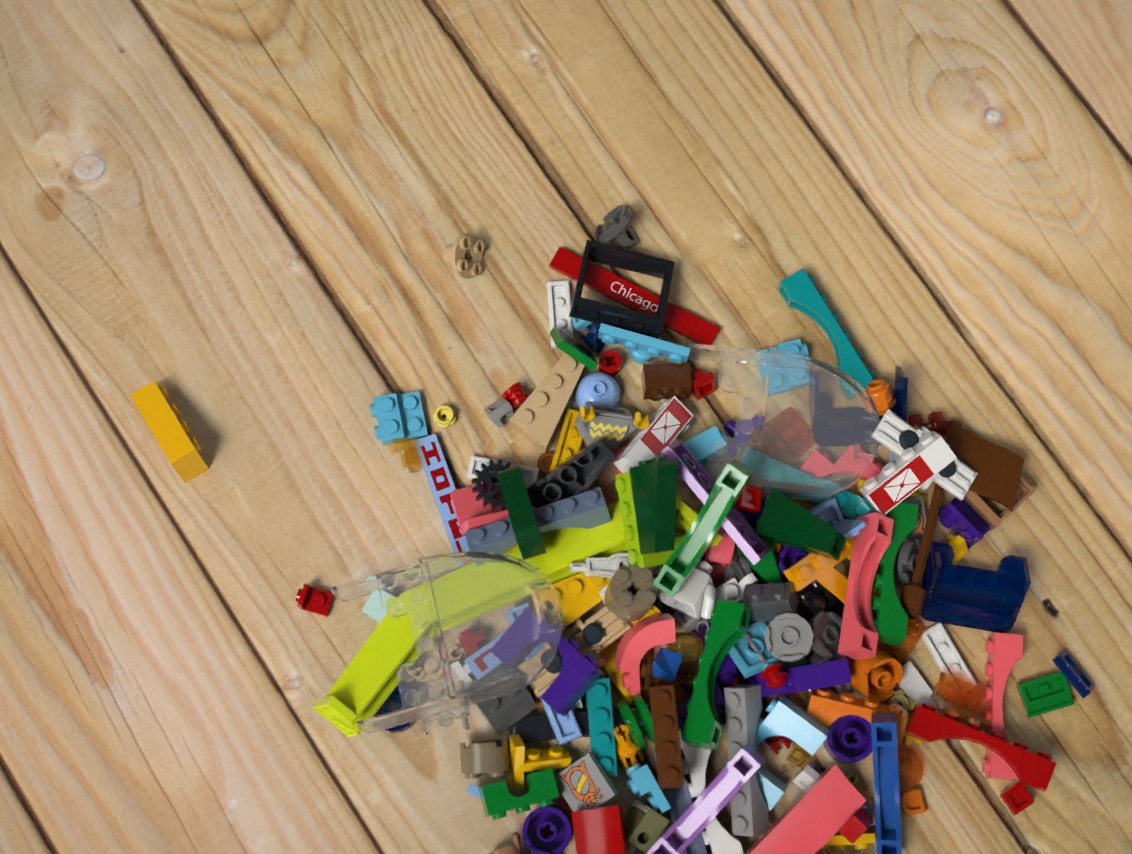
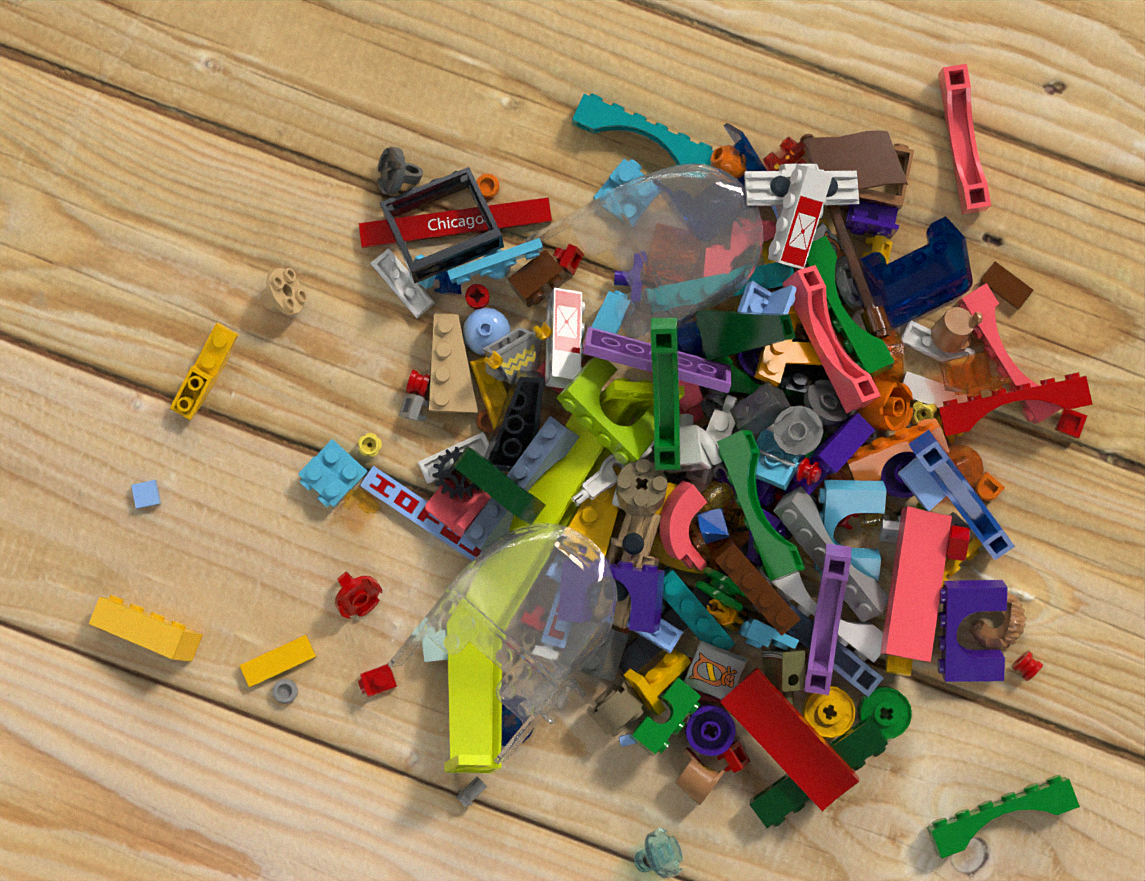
camera: 30 degrees left, 10 degrees up
(238, 557) = (285, 690): none -> light grey tile
(248, 332) = (146, 494): none -> light blue tile
(250, 529) = (278, 660): none -> yellow tile
(321, 742) = (471, 792): none -> light grey pin
(348, 522) = (357, 595): none -> red tile
(361, 274) = (205, 371): none -> yellow slope
(573, 348) = (438, 308): green tile -> none
(655, 503) = (609, 401): dark green slope -> none
(679, 288) = (488, 185): none -> orange tile
(750, 499) = (685, 334): red tile -> none
(859, 755) = (922, 484): none -> light blue tile
(971, 654) = (954, 330): none -> medium nougat hat
(1038, 650) = (1006, 285): none -> reddish brown tile
(1045, 694) = (1037, 319): green plate -> none
(1070, 533) = (968, 171): none -> coral arch
(1073, 673) = (1048, 284): clear blue tile -> none

